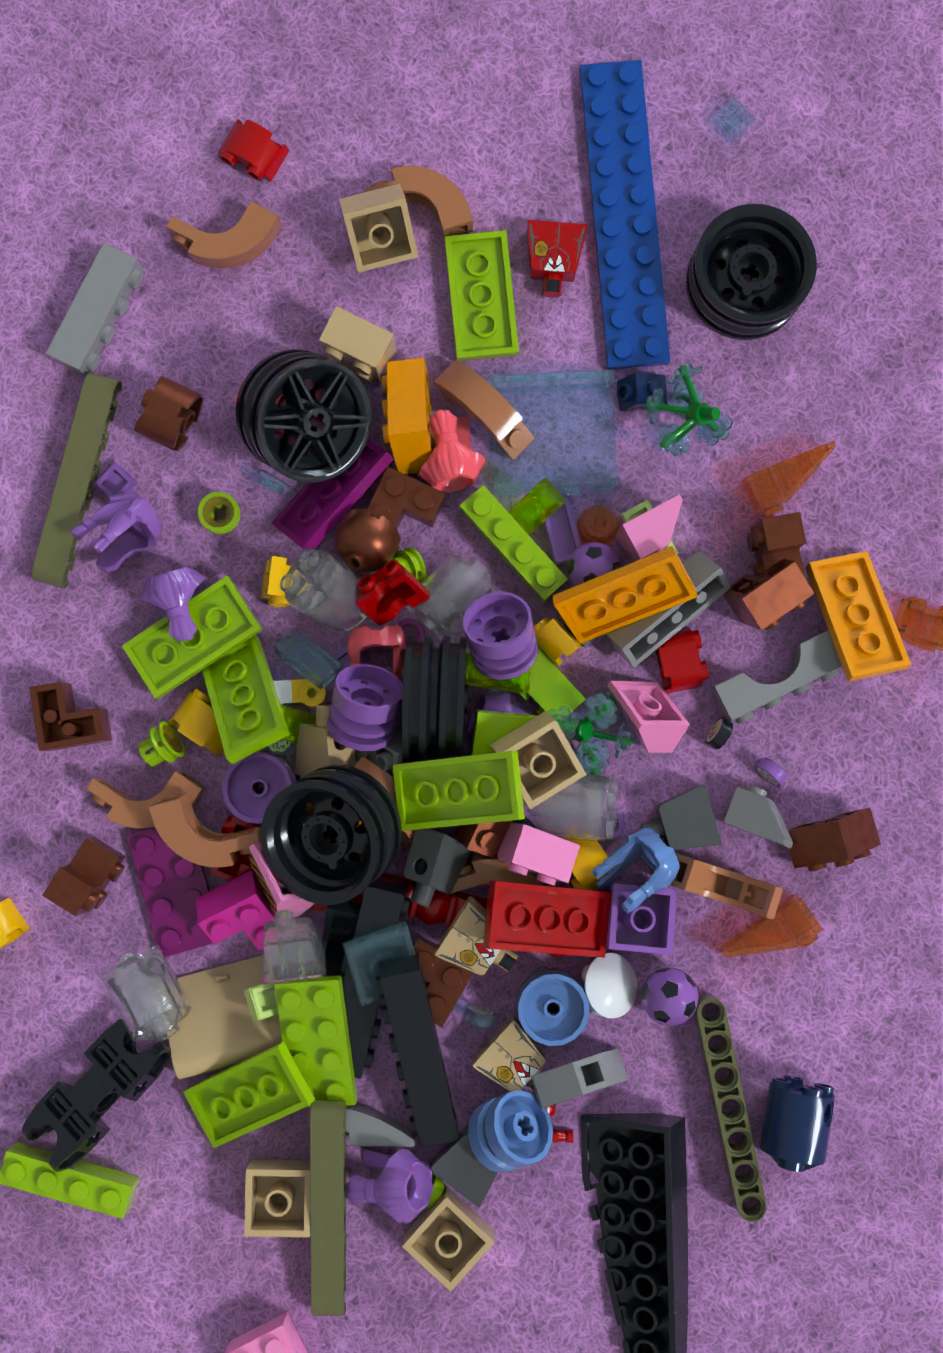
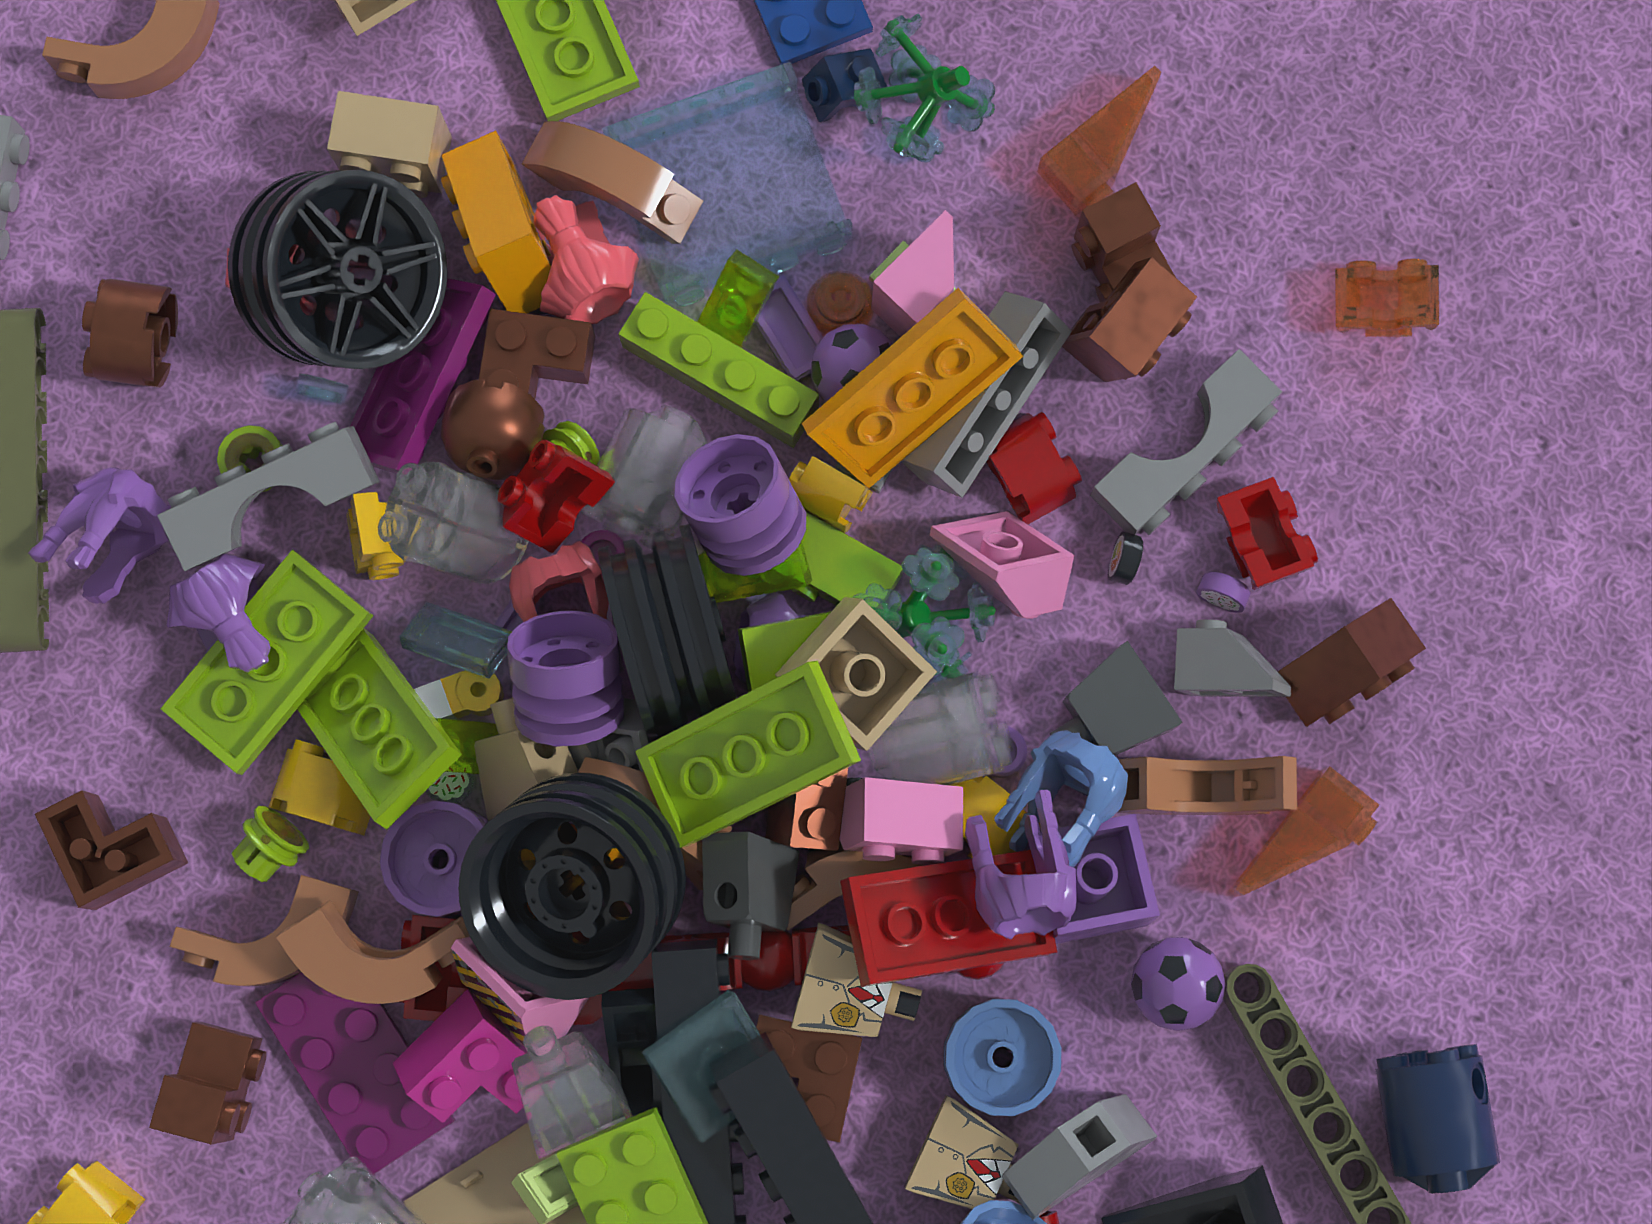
camera: 15 degrees left, 5 degrees down
(115, 481) = (75, 462): medium lavender tile -> none
(181, 545) = (212, 522): none -> light grey arch
(479, 1015) = (893, 1110): clear light blue tile -> none
(596, 929) = (1027, 901): none -> medium lavender piece
(610, 985) = (1081, 997): white dish -> none
(806, 746) = (1263, 534): none -> red cylinder
(857, 616) = (1276, 314): light orange plate -> none

